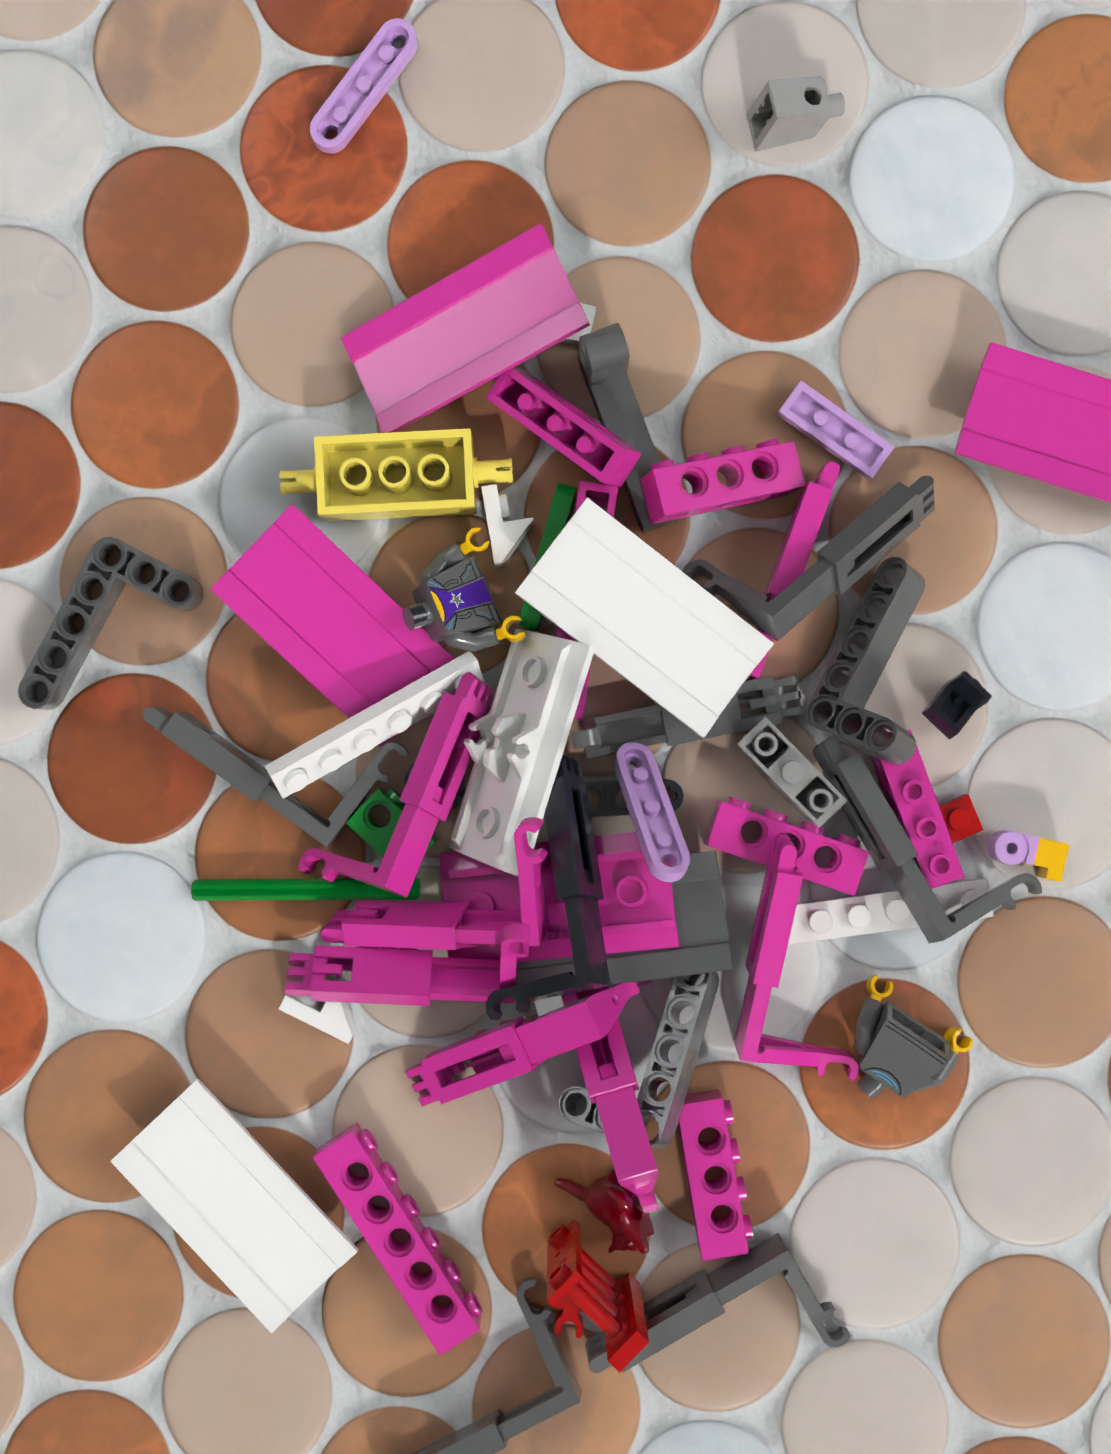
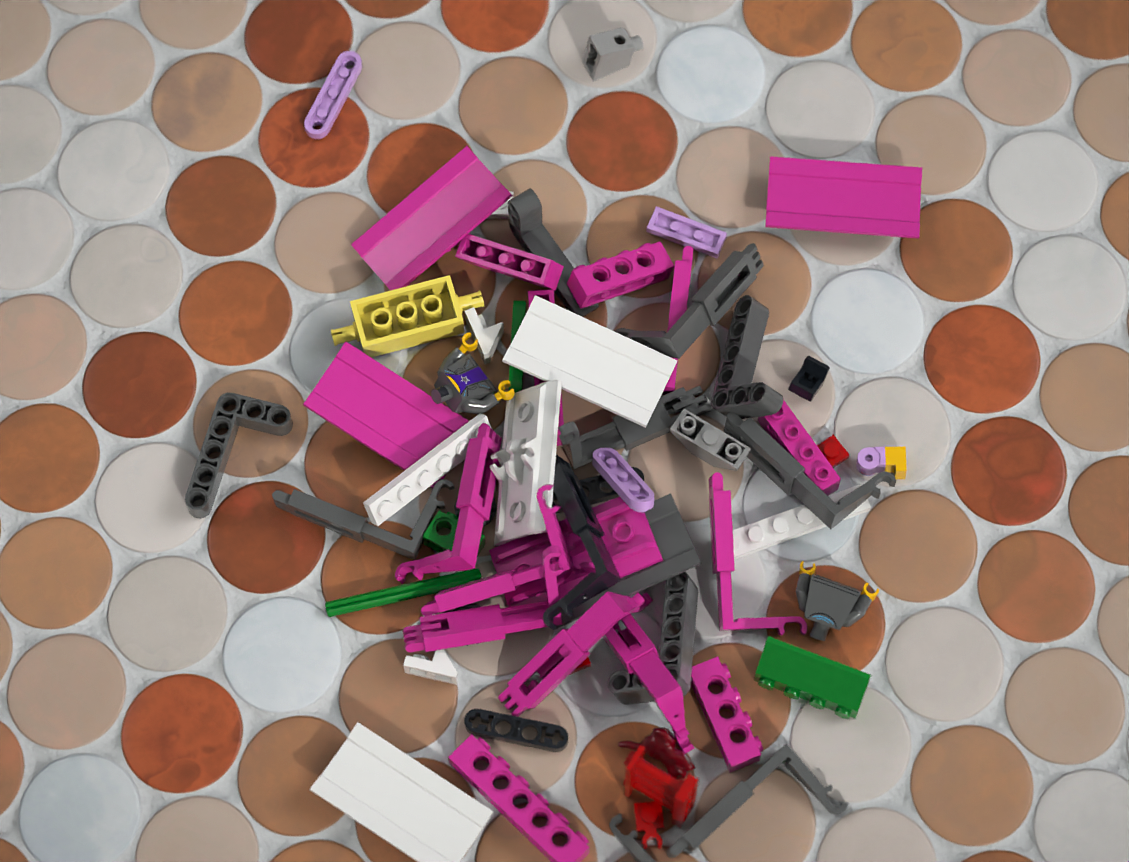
camera: 10 degrees left, 20 degrees down
(422, 1119) = (515, 734): none -> black beam
(840, 873) = (756, 505): dark pink brick -> none
(847, 1158) = (811, 678): none -> green slope

